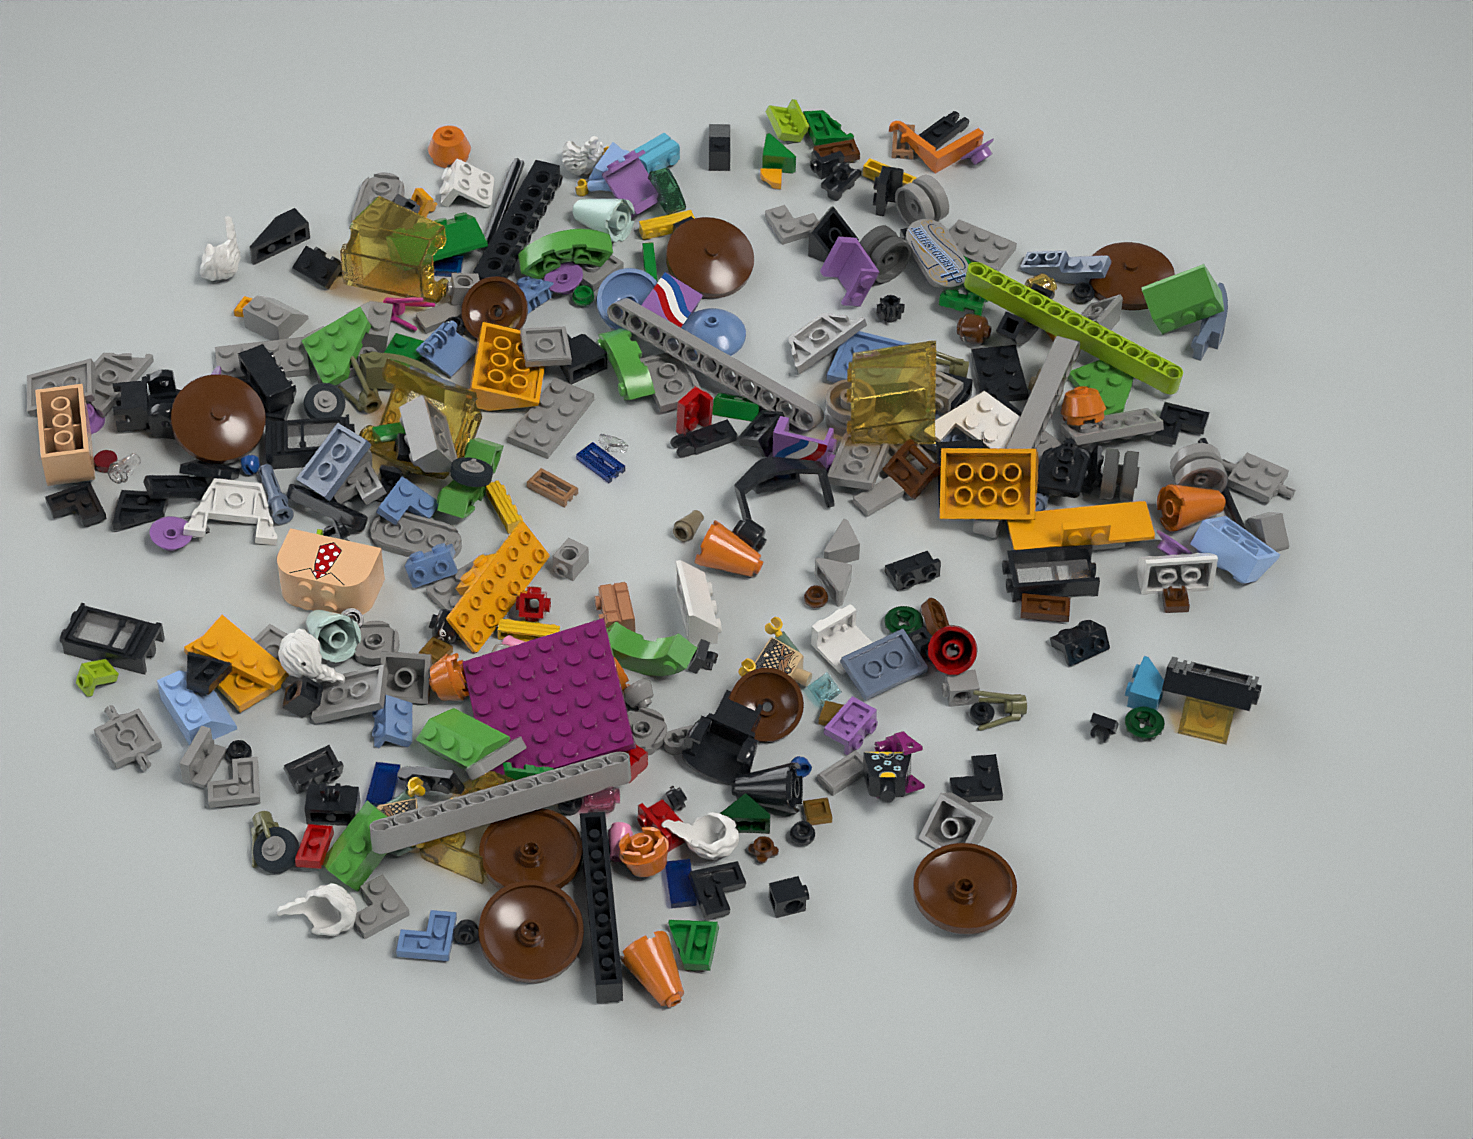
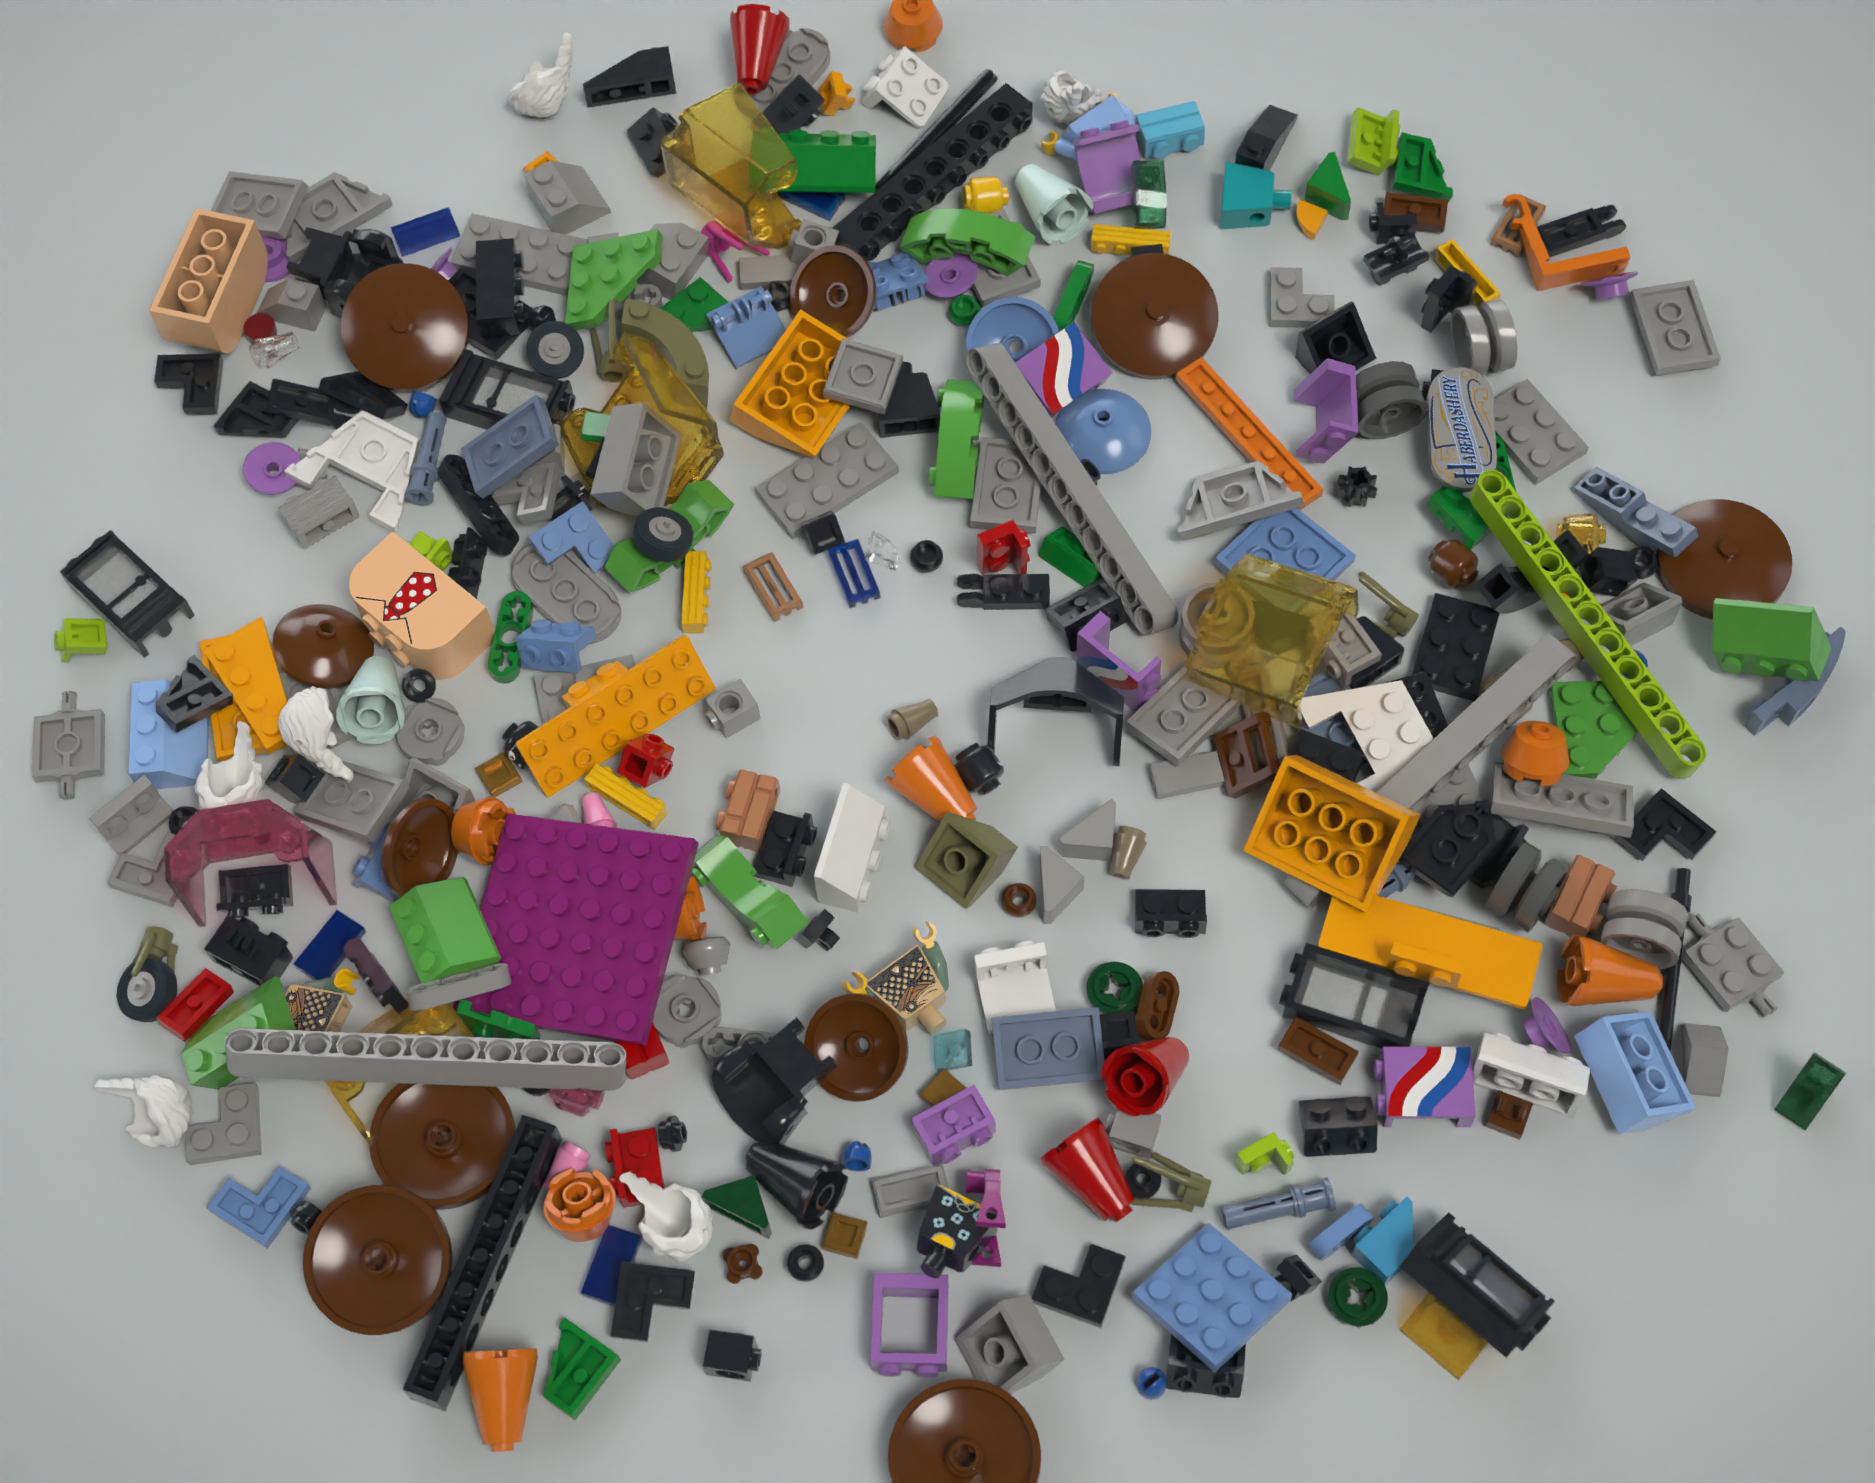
camera: 30 degrees right, 15 degrees up
(122, 436) = (294, 304): none -> light grey slope
(190, 367) = (425, 231): none -> clear blue tile
(218, 547) = (319, 511): none -> light grey brick
(264, 714) = (232, 780): none -> white hair
(270, 617) = (320, 657): none -> reddish brown dish
(301, 389) = (540, 315): none -> black plate
(306, 724) = (239, 833): none -> clear pink windscreen
(355, 183) = (756, 44): none -> red cone
(393, 582) = (504, 624): none -> green beam
(415, 696) = (419, 846): none -> reddish brown dish
(557, 223) = (984, 195): none -> yellow head
(569, 444) = (823, 532): none -> black tile
(642, 436) = (926, 556): none -> black plate
(651, 620) = (784, 848): none -> black bracket
(728, 176) = (1250, 197): none -> teal torso
(769, 585) = (965, 857): none -> olive slope
(796, 299) = (1245, 428): none -> orange plate
(868, 546) = (1127, 848): none -> dark tan cone
(880, 817) = (914, 1287): none -> medium lavender window
(950, 715) = (1091, 1171): none -> red cone
(1030, 164) = (1674, 327): none -> light grey plate
(1045, 669) = (1259, 1155): none -> lime bracket
(1055, 815) = (1157, 1389): none -> blue hinge
(1060, 752) = (1212, 1297): none -> medium blue plate
(1070, 297) = (1608, 571): none -> black brick
(1077, 790) = (1190, 1374): none -> black bracket
(1079, 688) = (1296, 1201): none -> sand blue pin
(1115, 693) = (1340, 1232): none -> medium blue beam
(1119, 597) = (1425, 1084): none -> panel
(1152, 473) = (1580, 898): none -> nougat brick
(1338, 520) = (1809, 1090): none -> clear green slope

